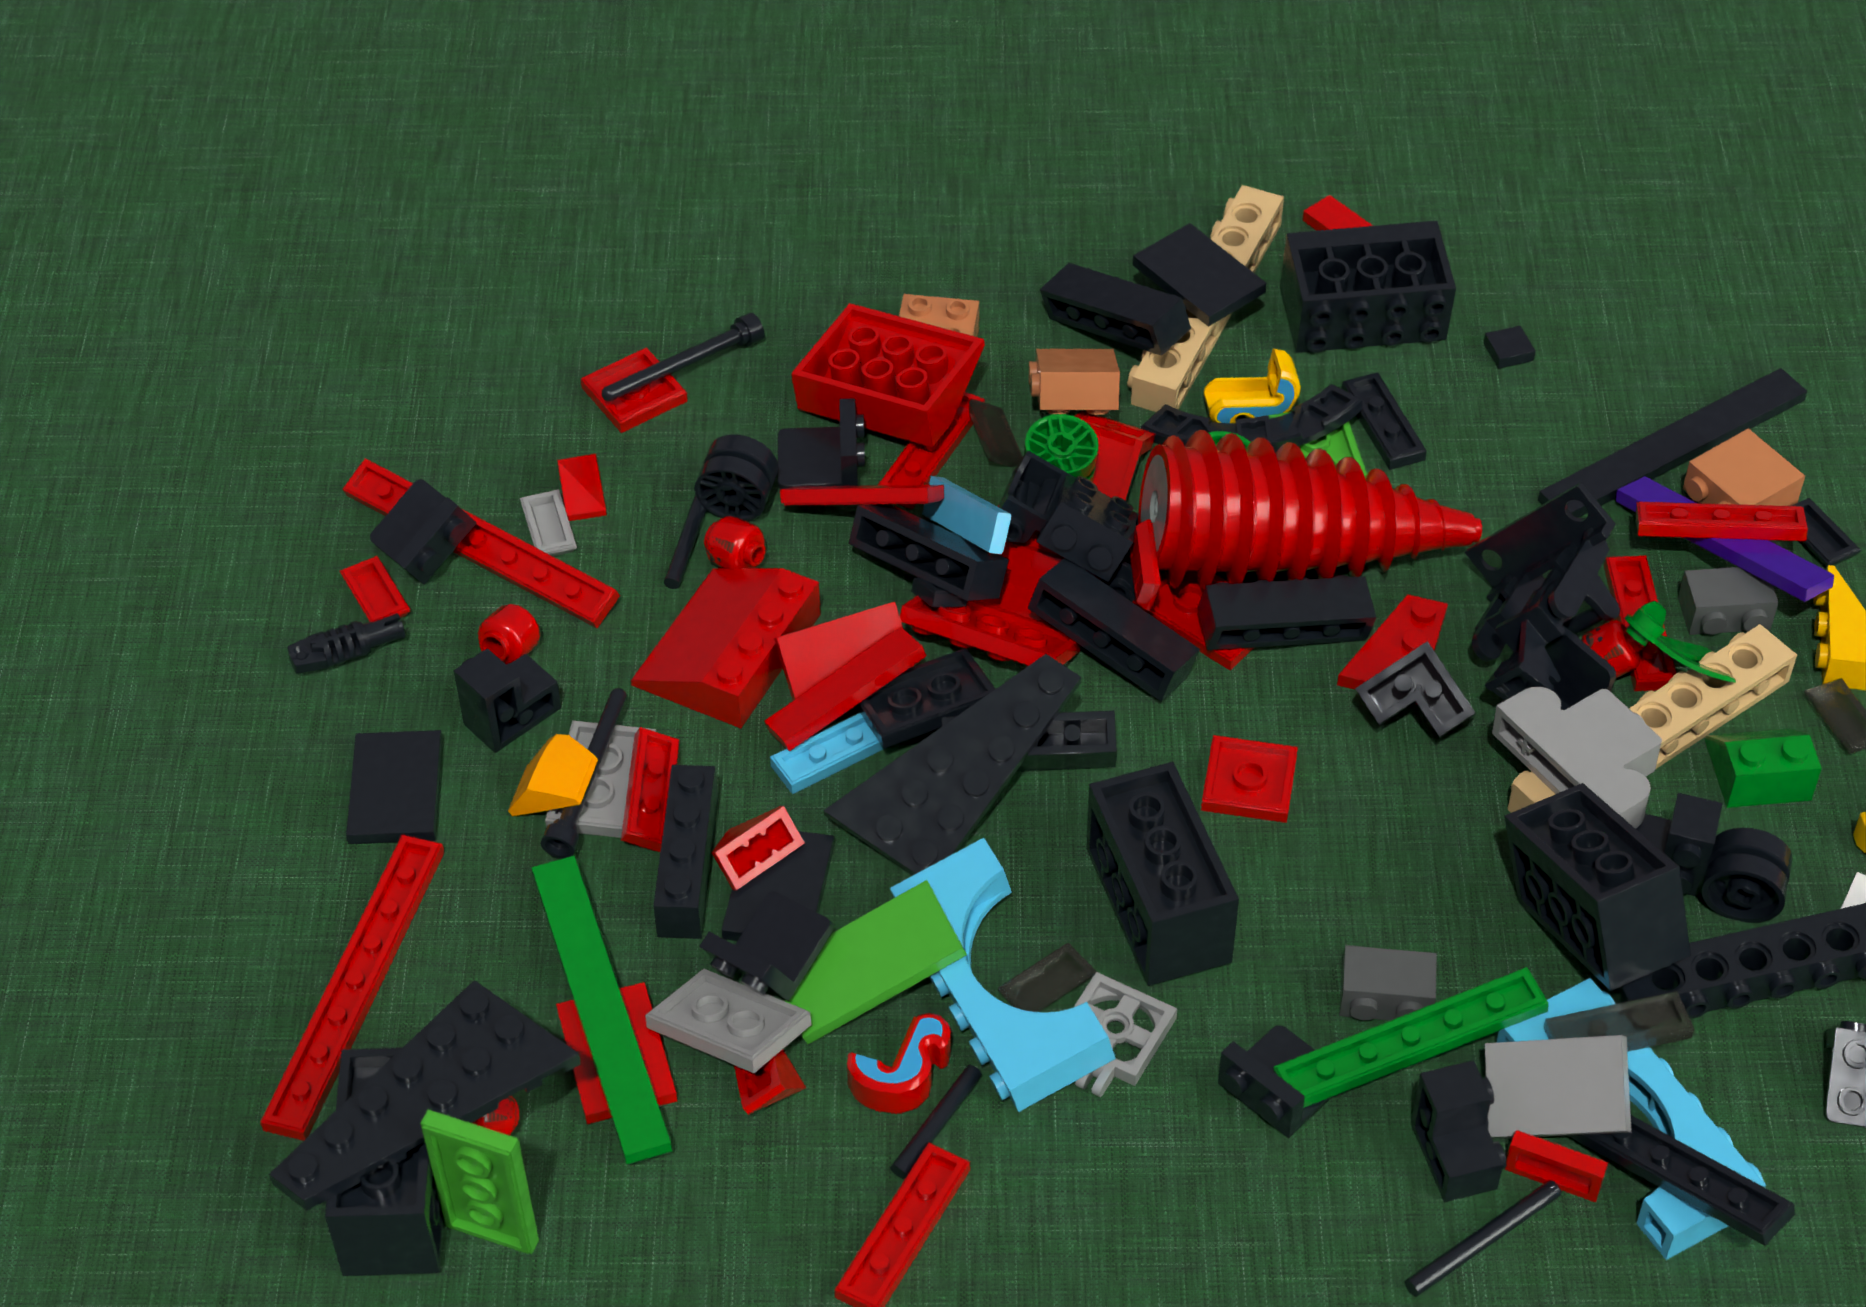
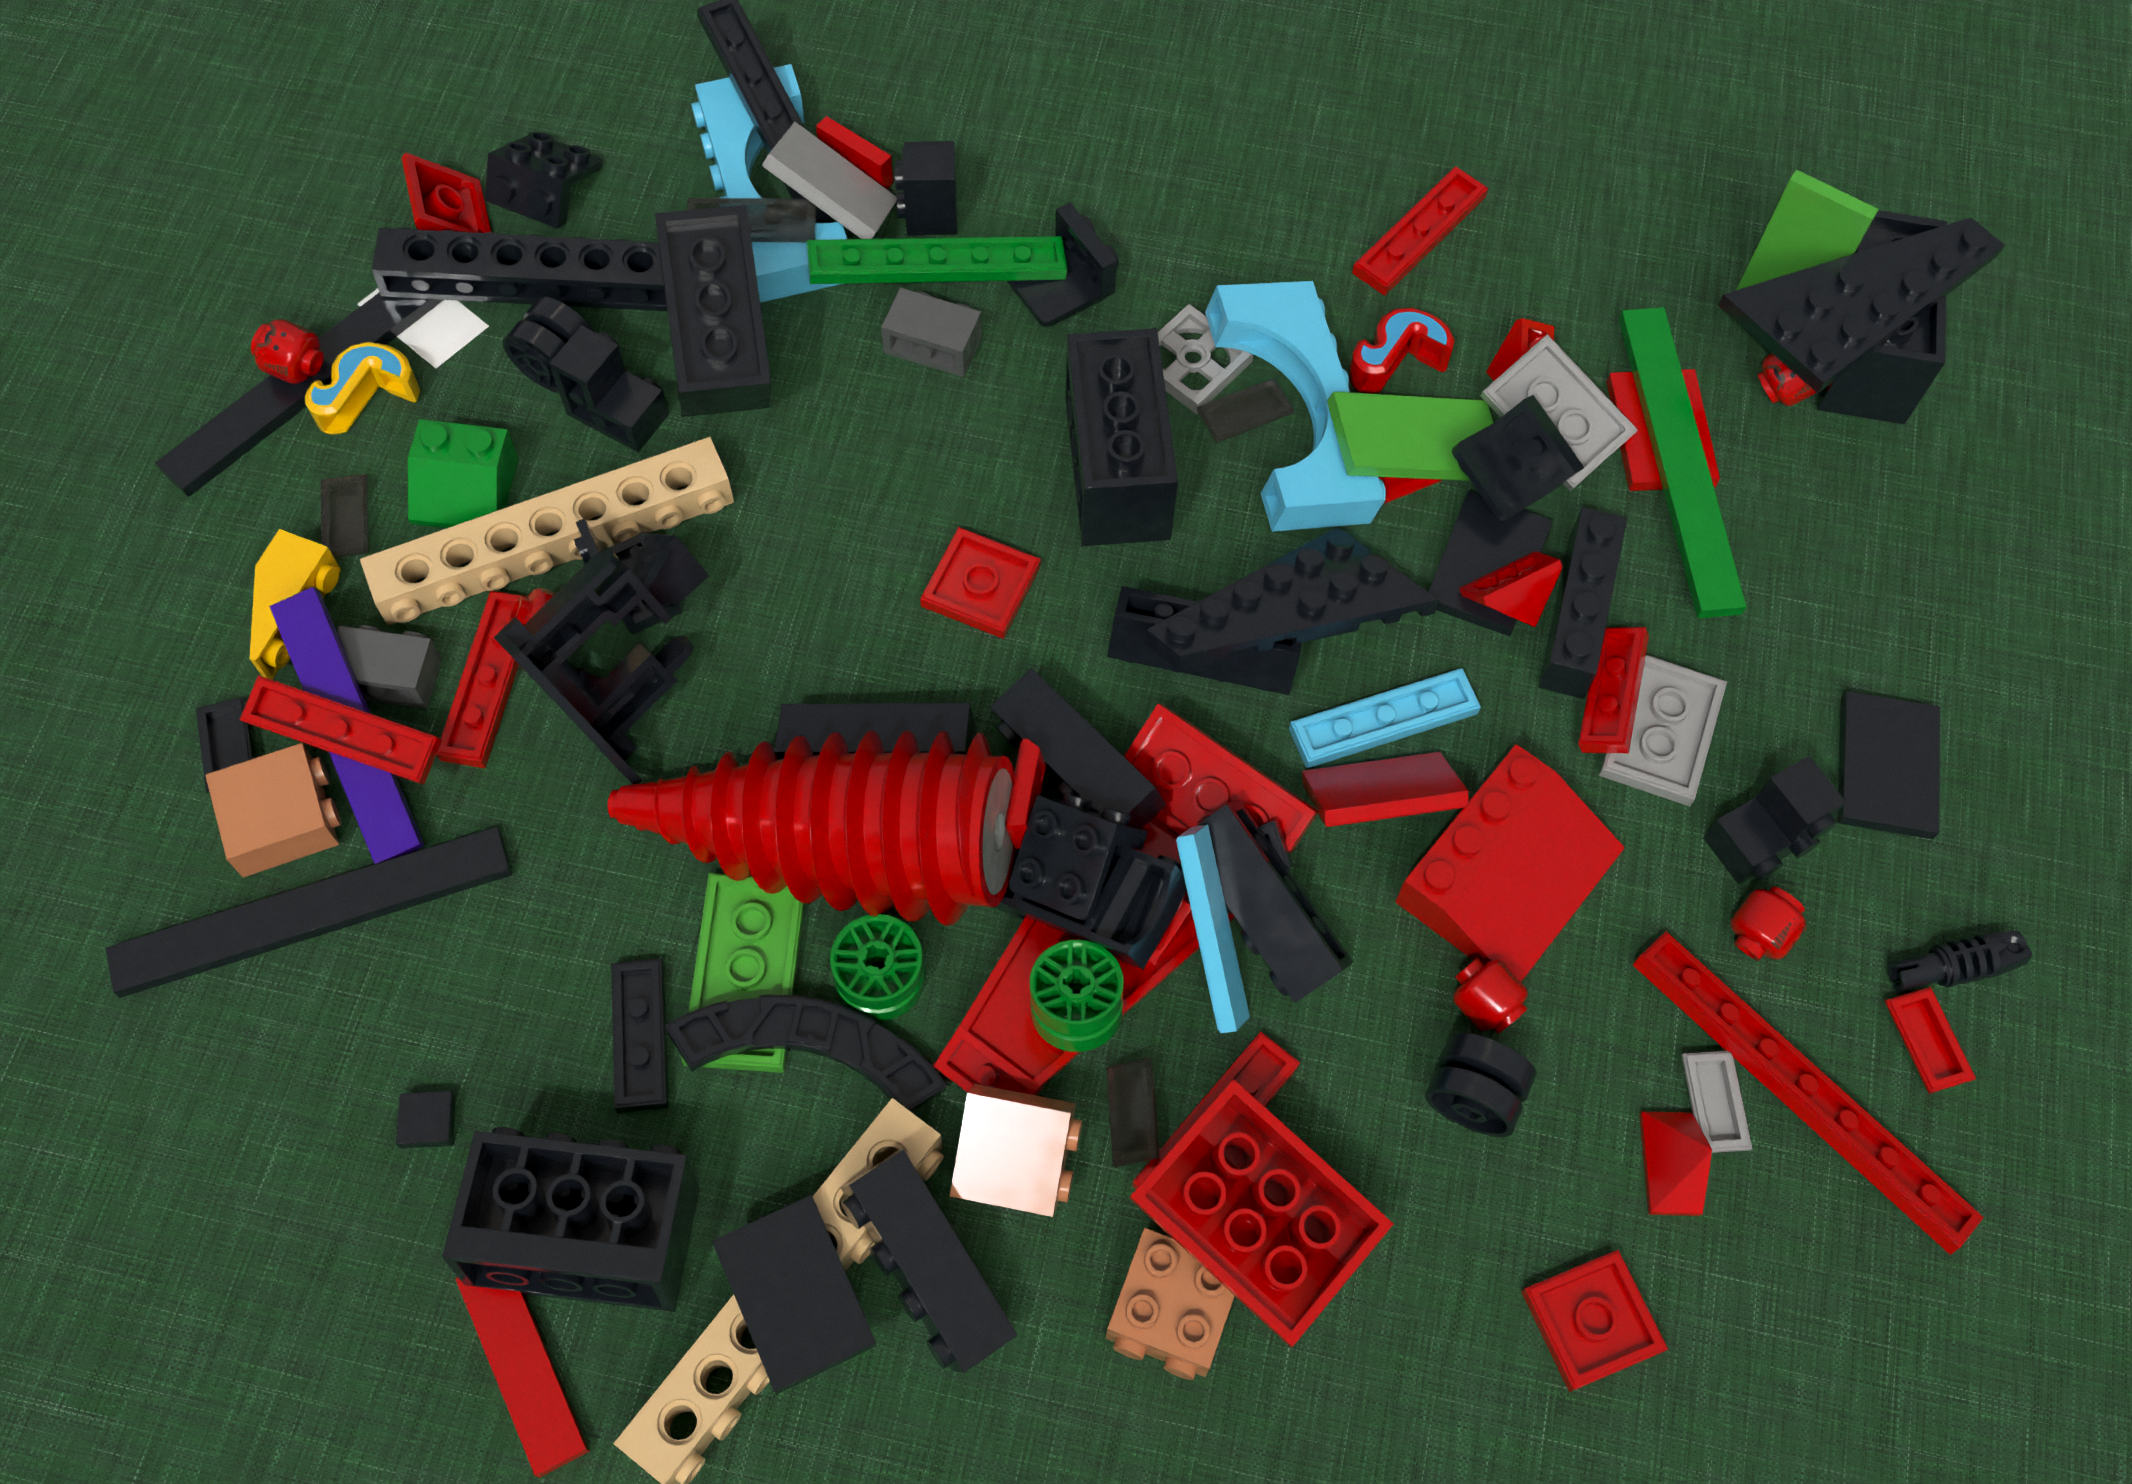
camera: 170 degrees left, 15 degrees up
(352, 988) = (1914, 555): red tile -> none
(422, 530) = (1875, 1095): black bracket -> none
(554, 777) = (1721, 708): light orange slope -> none
(562, 835) = (1711, 645): black piece -> none
(685, 545) = (1541, 1048): black bar -> none
(745, 331) = (1438, 1383): black piece -> none
(822, 453) = (1364, 1126): black bracket -> none
(845, 688) = (1391, 744): red tile -> none
(862, 495) = (1328, 1014): red tile -> none
(924, 695) = (1305, 722): black tile -> none
(936, 1121) = (1377, 308): black bar -> none
(1255, 395) = (791, 1089): yellow animal -> none
(1403, 631) = (753, 697): red wing -> none
(1418, 679) = (778, 603): black brick -> none
(1482, 1238) = (946, 125): black bar -> none
(1587, 744) = (645, 465): light grey brick -> none
(1647, 627) = (506, 591): green plant -> none

